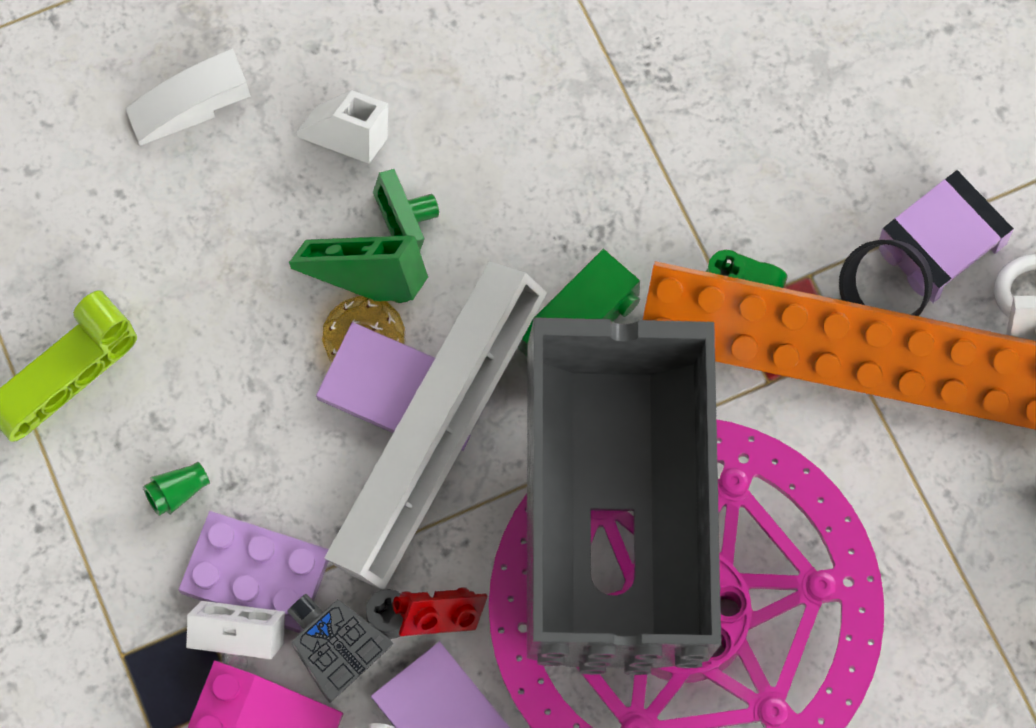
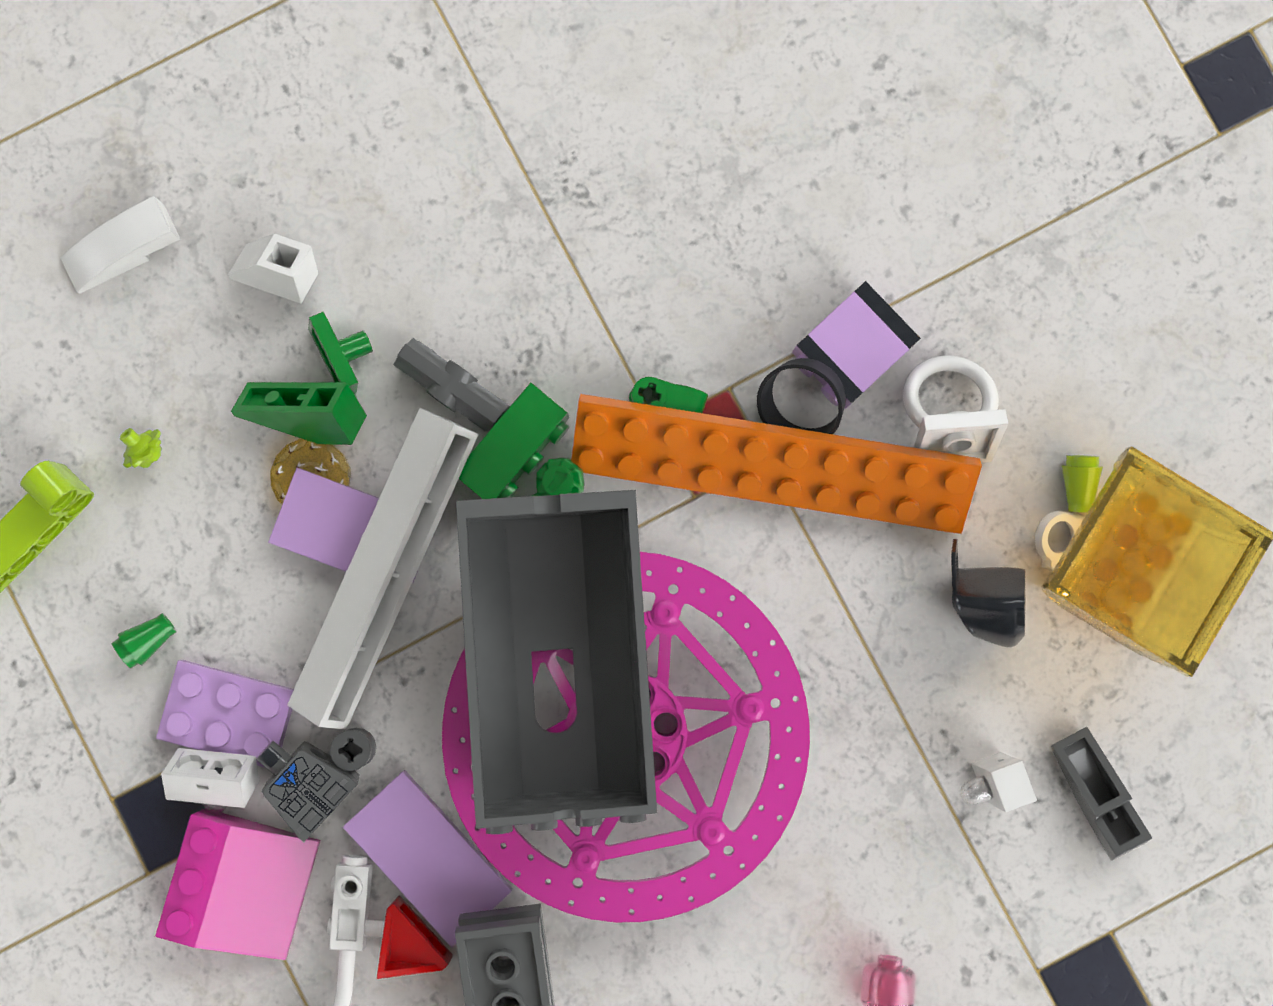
camera: 10 degrees left, 15 degrees up
(192, 294) = (141, 448): none -> lime plant
(442, 613) = (414, 742): red hinge -> none
(516, 248) = (450, 384): none -> dark grey piece

